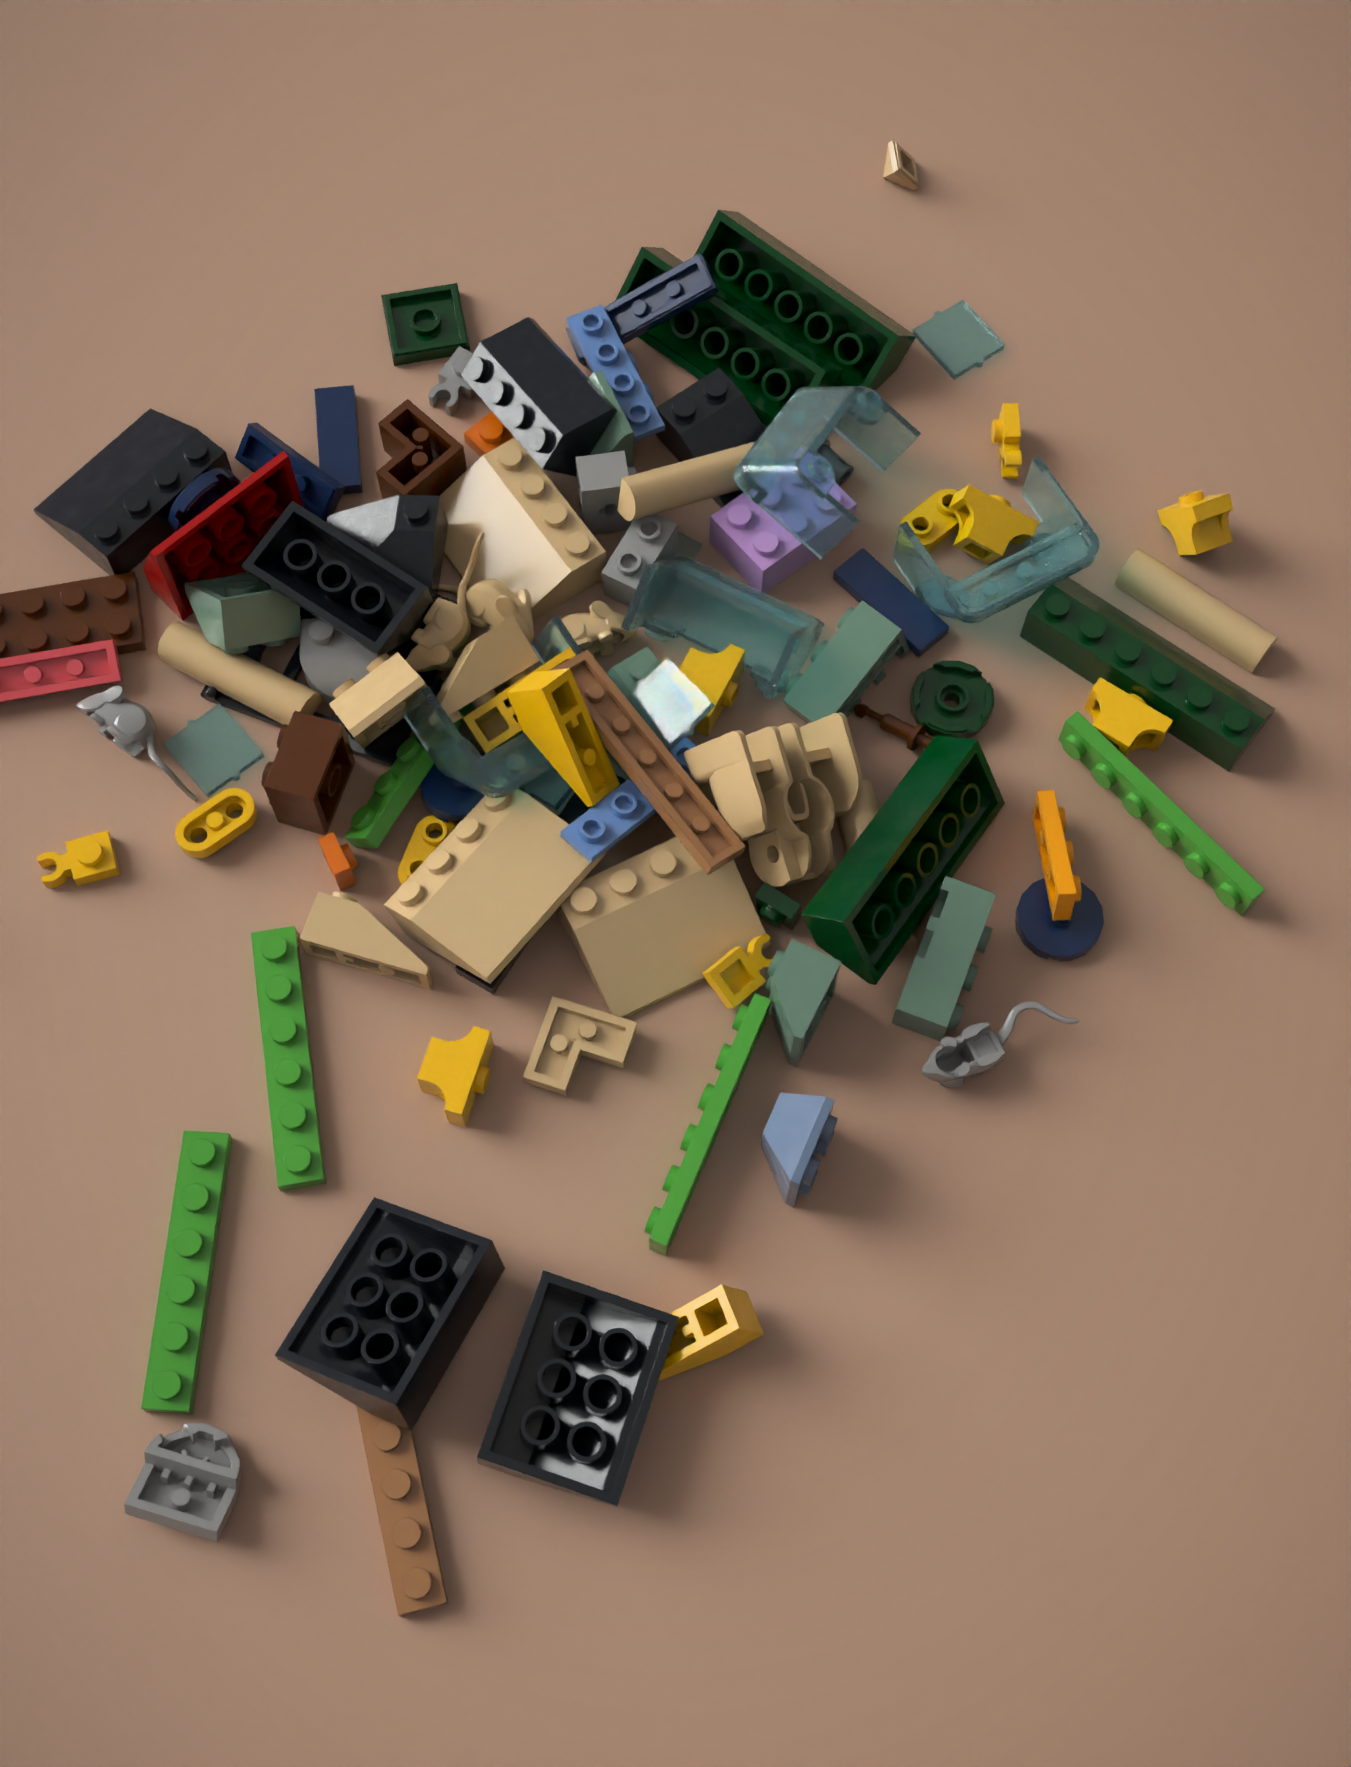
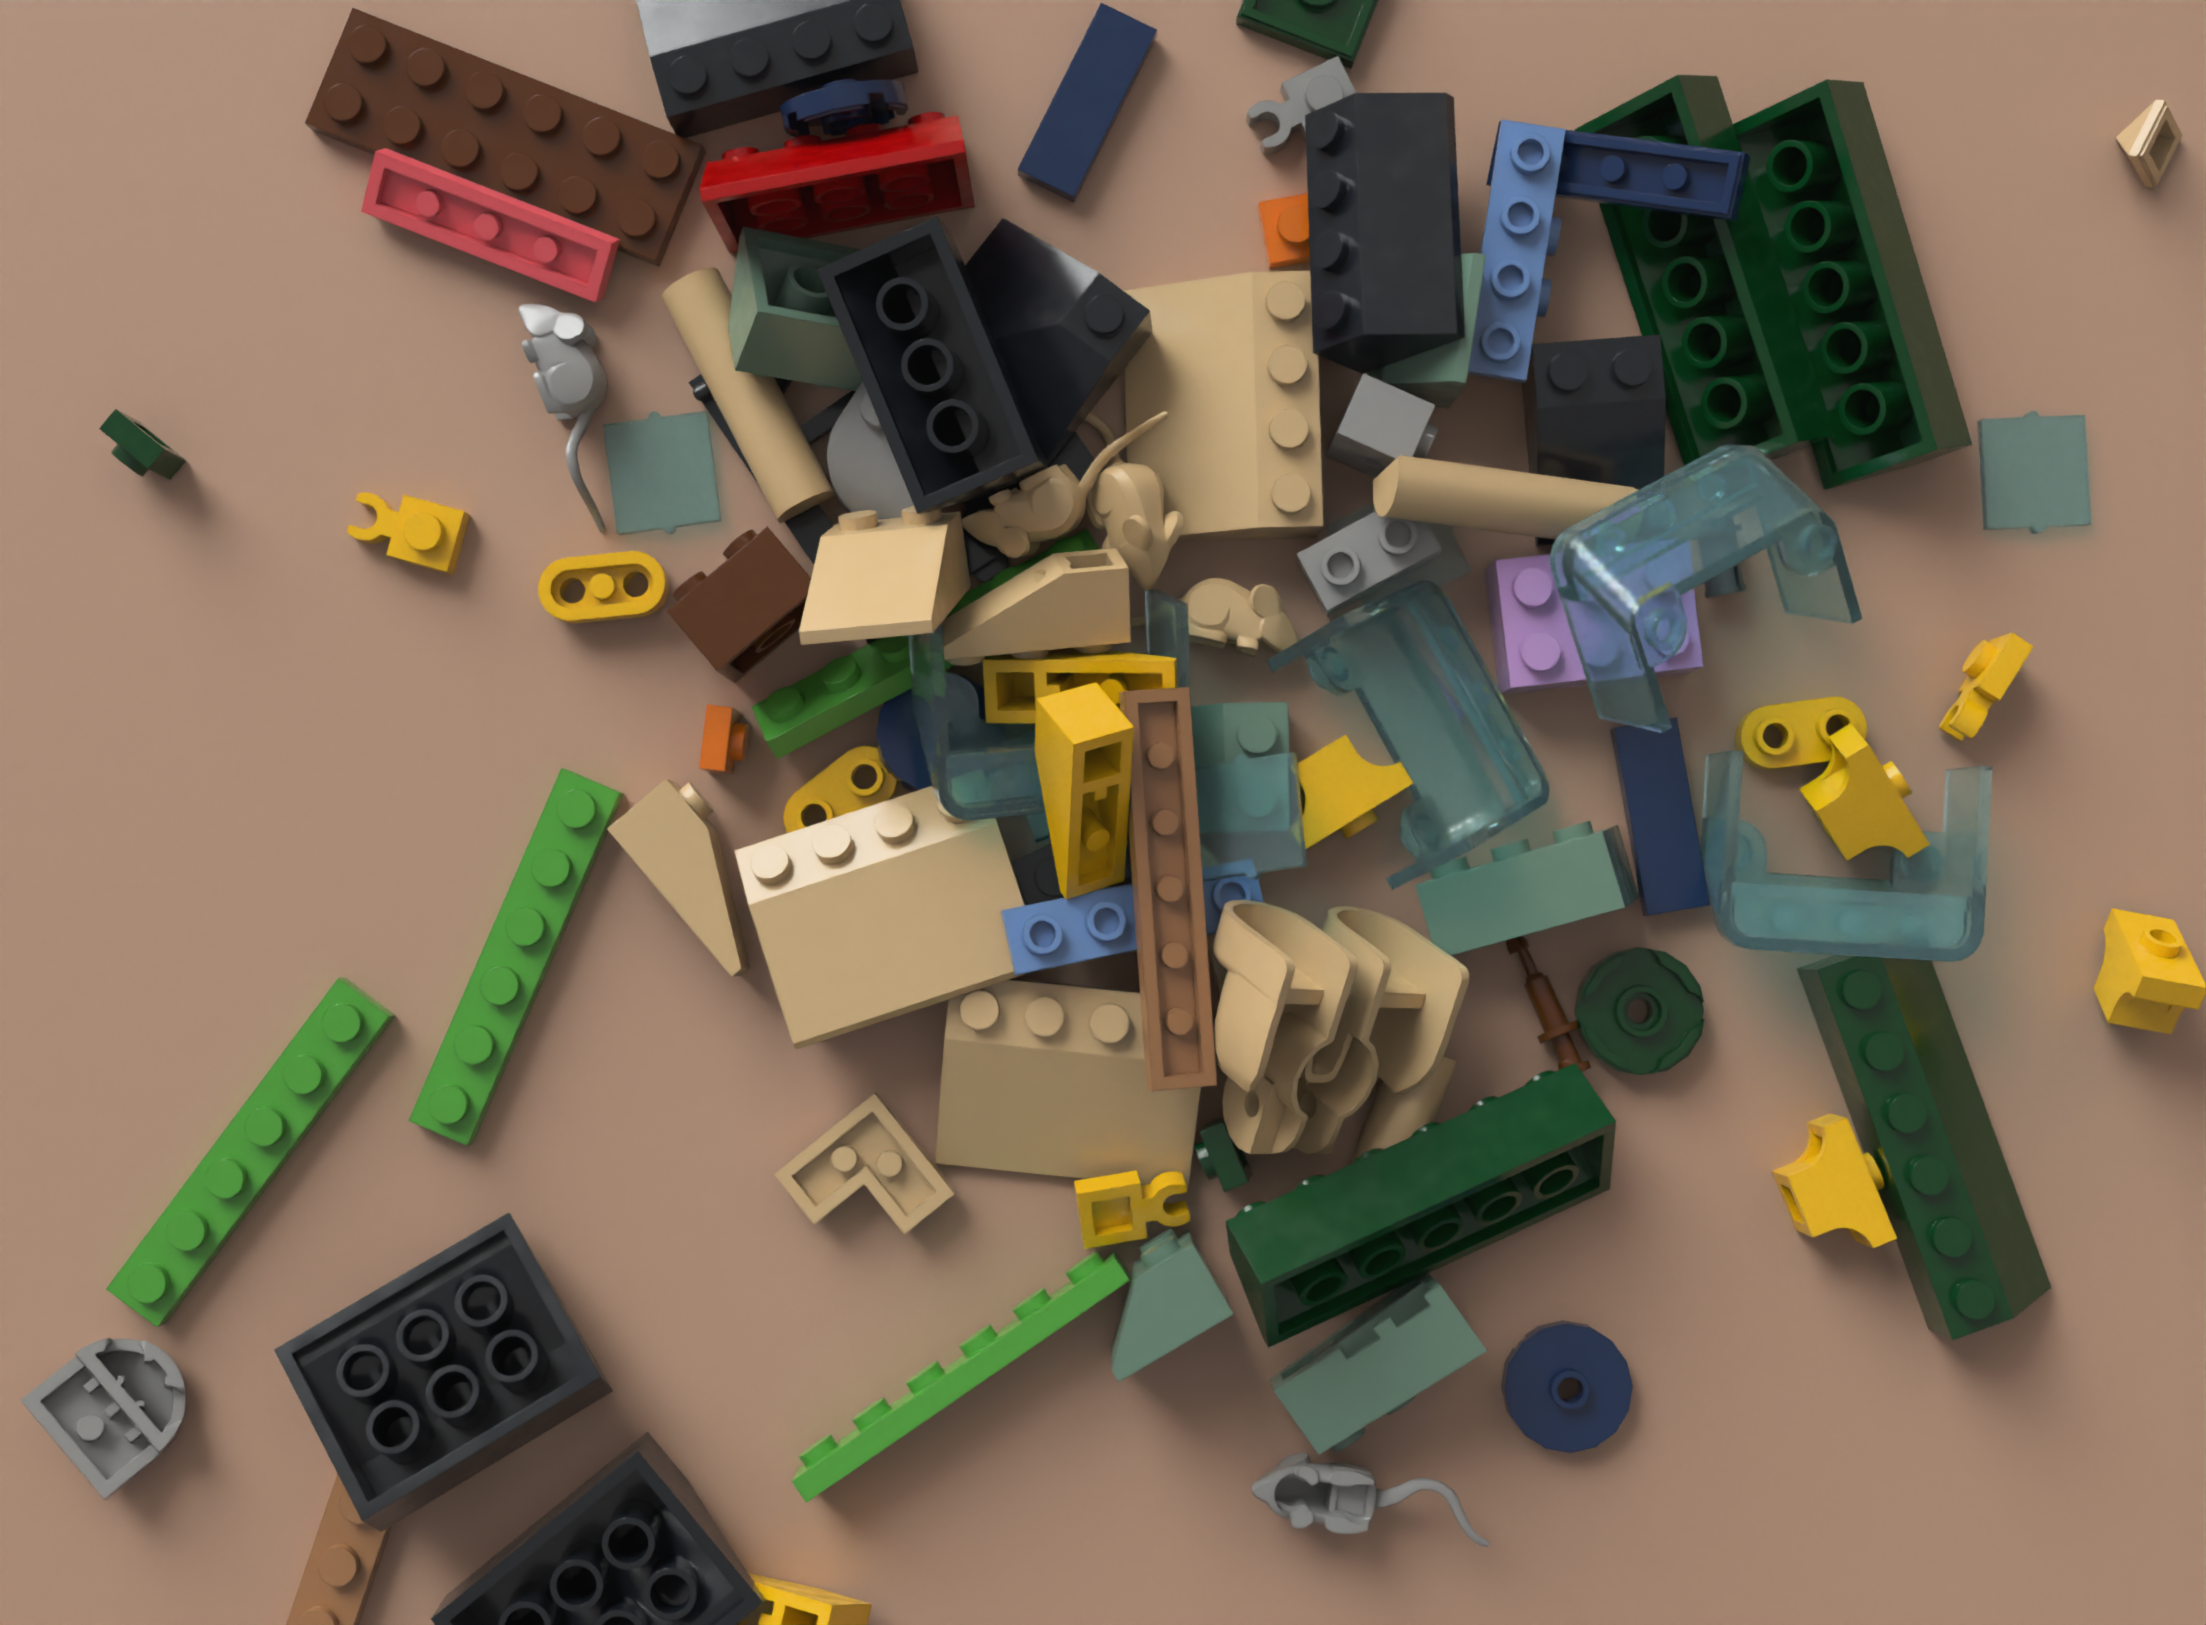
camera: 30 degrees right, 20 degrees up
(317, 489) = (989, 118): dark blue tile -> none
(422, 454) = (1179, 224): reddish brown brick -> none
(457, 1072) = (700, 1117): yellow brick -> none
(793, 1137) = (1045, 1471): sand blue slope -> none
(1055, 855) = (1614, 1316): light orange plate -> none
(1169, 823) = (1792, 1363): bright green plate -> none
(1195, 610) = (2052, 1089): tan brick -> none

